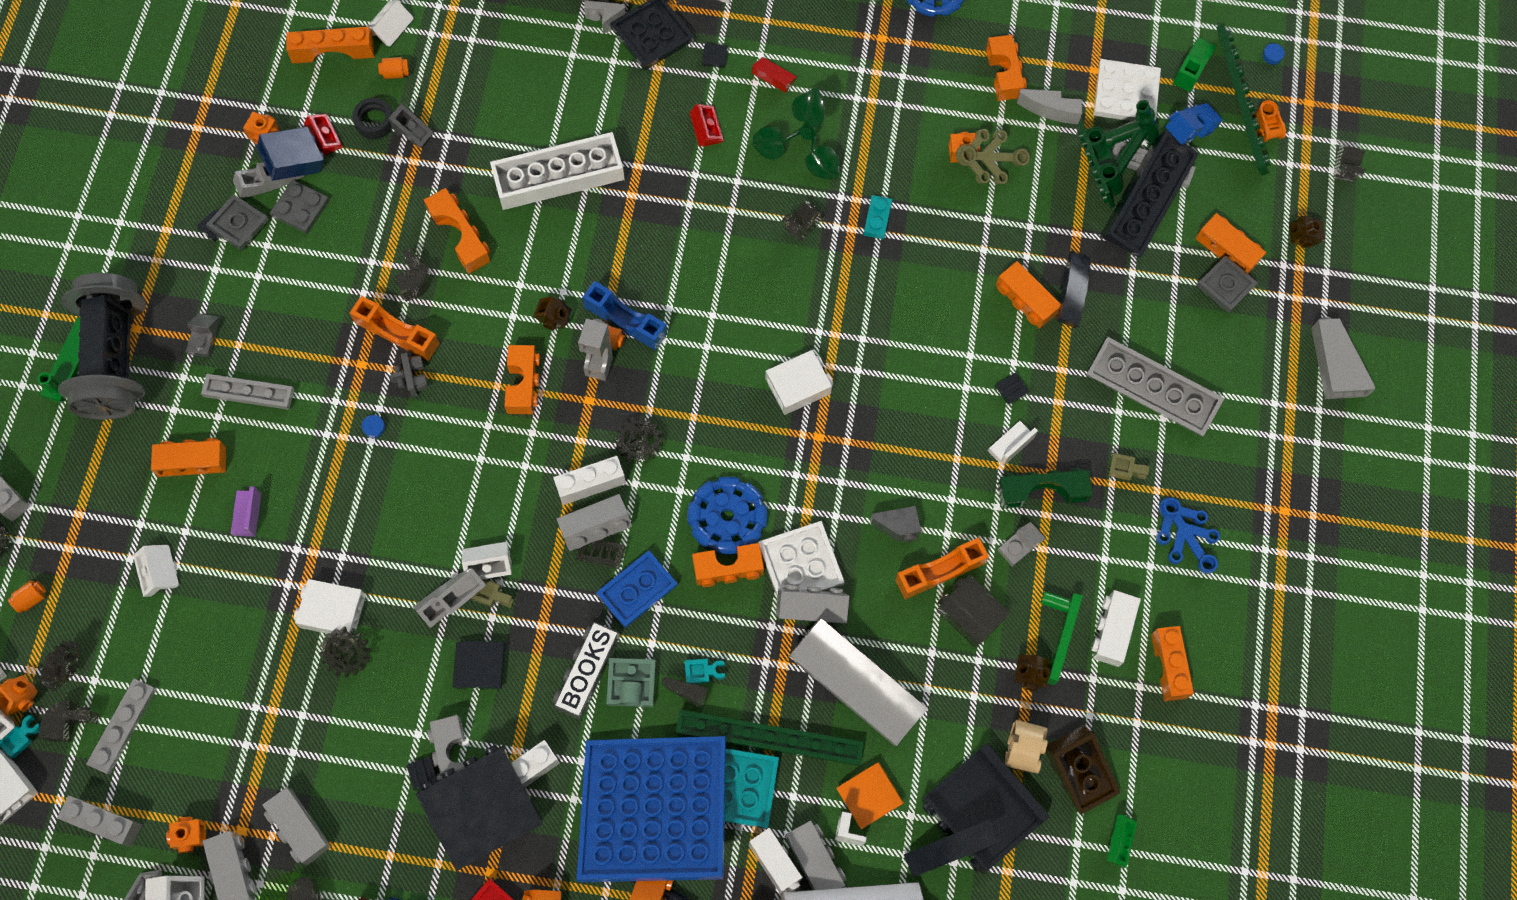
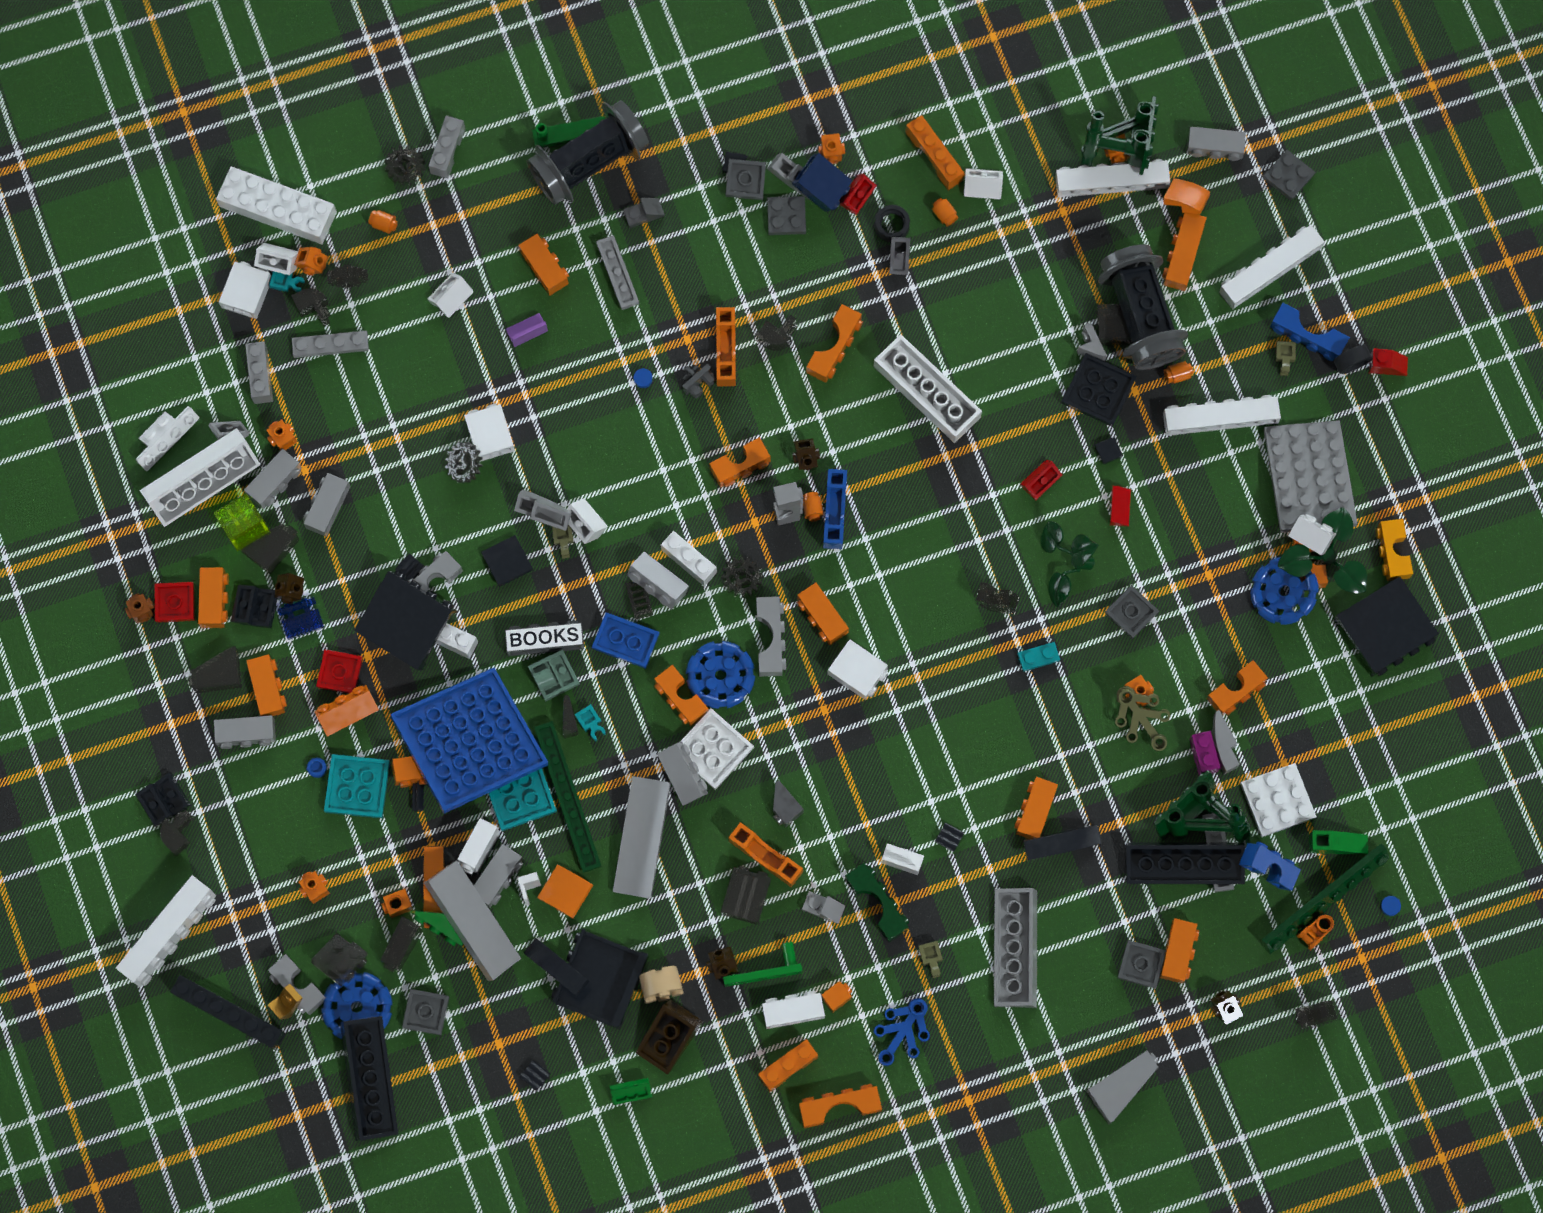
camera: 65 degrees right, 5 degrees up
(693, 433) = (769, 613): none -> light grey arch
(723, 385) = (822, 614): none -> orange brick
(881, 115) = (1131, 612): none -> dark grey plate
(1053, 125) = (1204, 752): none -> magenta brick
(1122, 577) = (837, 996): none -> orange brick
(1231, 661) = (864, 1100): none -> orange arch

